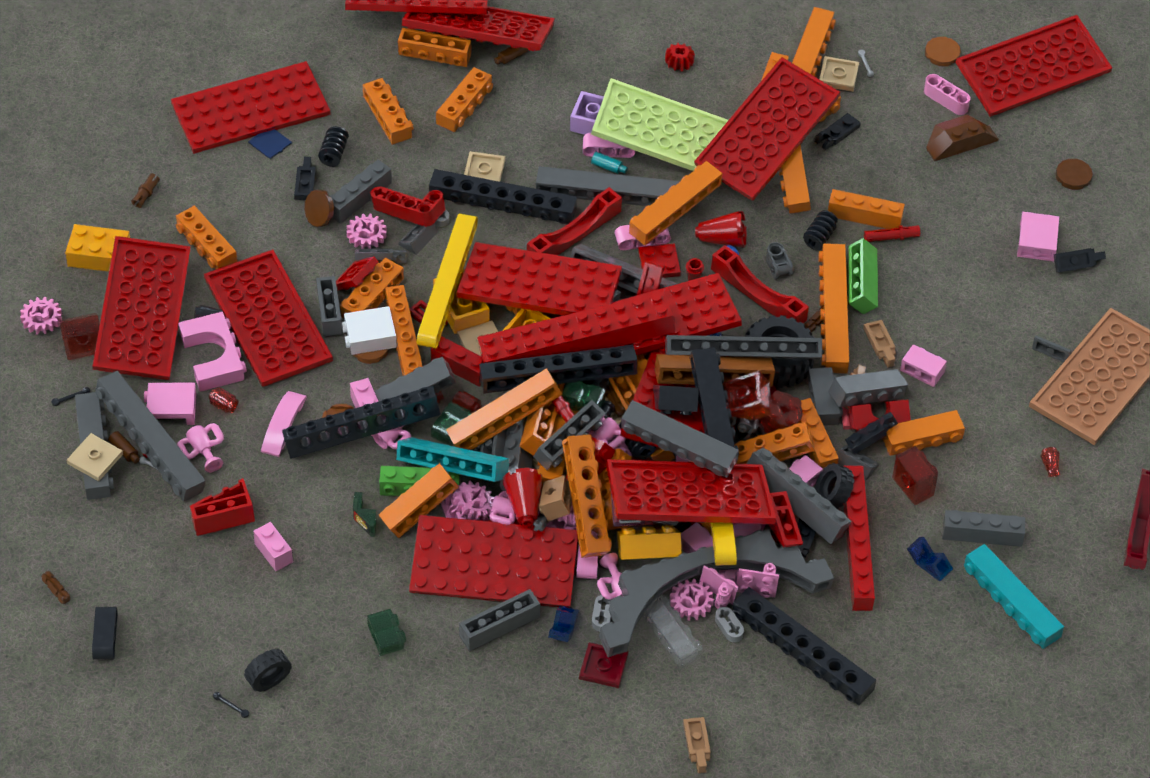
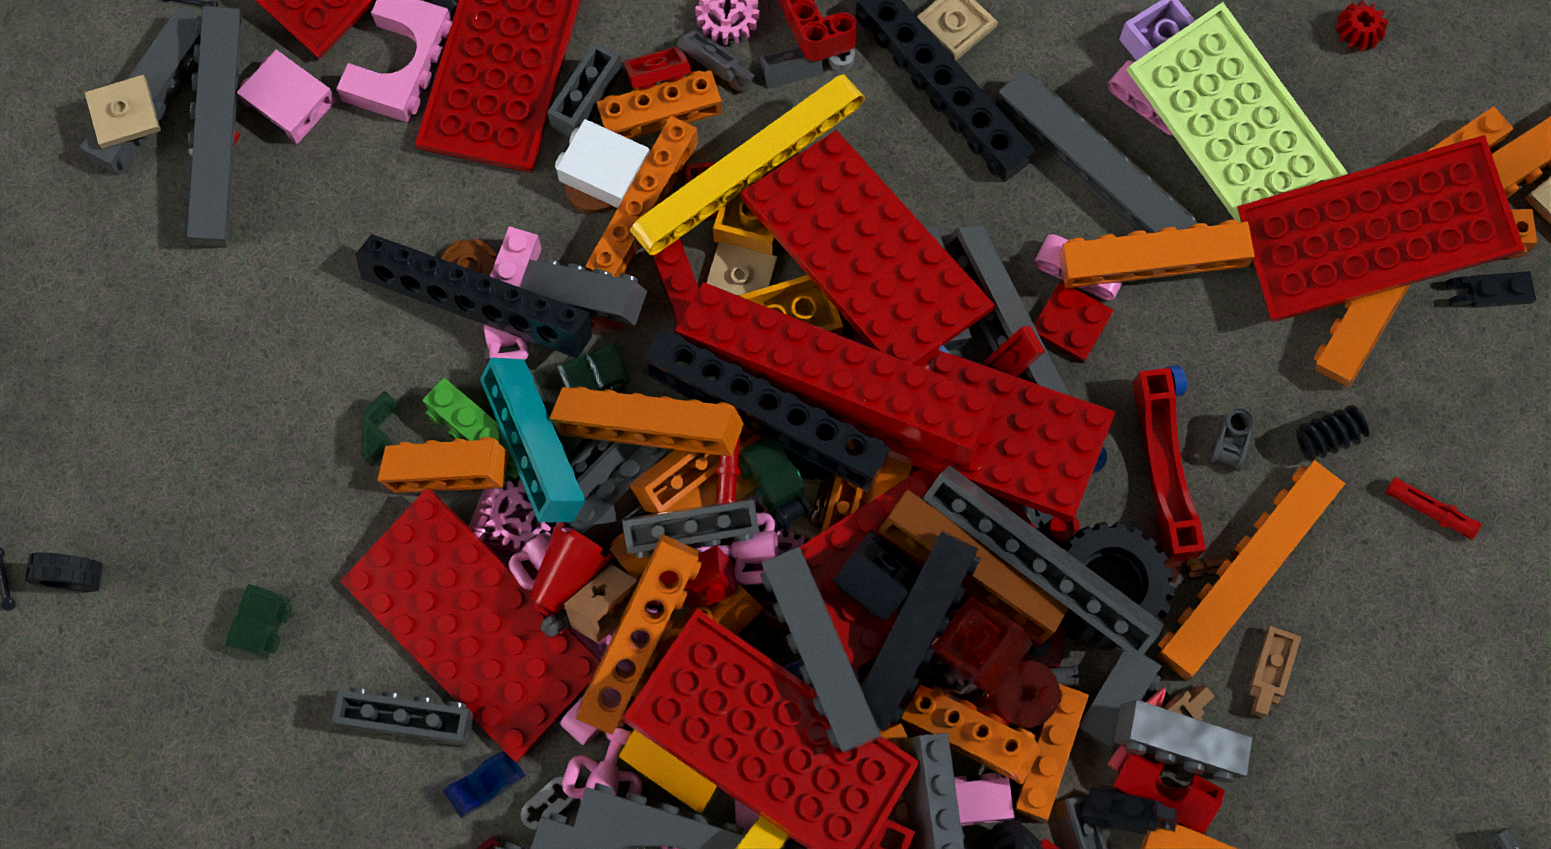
camera: 40 degrees right, 20 degrees up
(122, 443) = (182, 120): reddish brown cylinder -> none
(200, 441) = (274, 180): bright pink piece -> none
(223, 400) = (351, 136): clear red brick -> none
(223, 510) = (215, 297): red wedge -> none
(273, 546) = (229, 393): bright pink brick -> none
(282, 419) = (401, 214): bright pink slope -> none
(467, 401) = (634, 351): clear red brick -> none
(601, 209) = (1049, 192): red arch -> none
(608, 163) = (1128, 124): teal cylinder -> none
(694, 268) = (1101, 373): red cone -> none
(724, 230) = (1195, 340): red cone -> none
(863, 276) = (1330, 550): bright green brick -> none
(866, 209) = (1425, 446): orange brick -> none
(923, 365) = (1301, 753): bright pink brick -> none

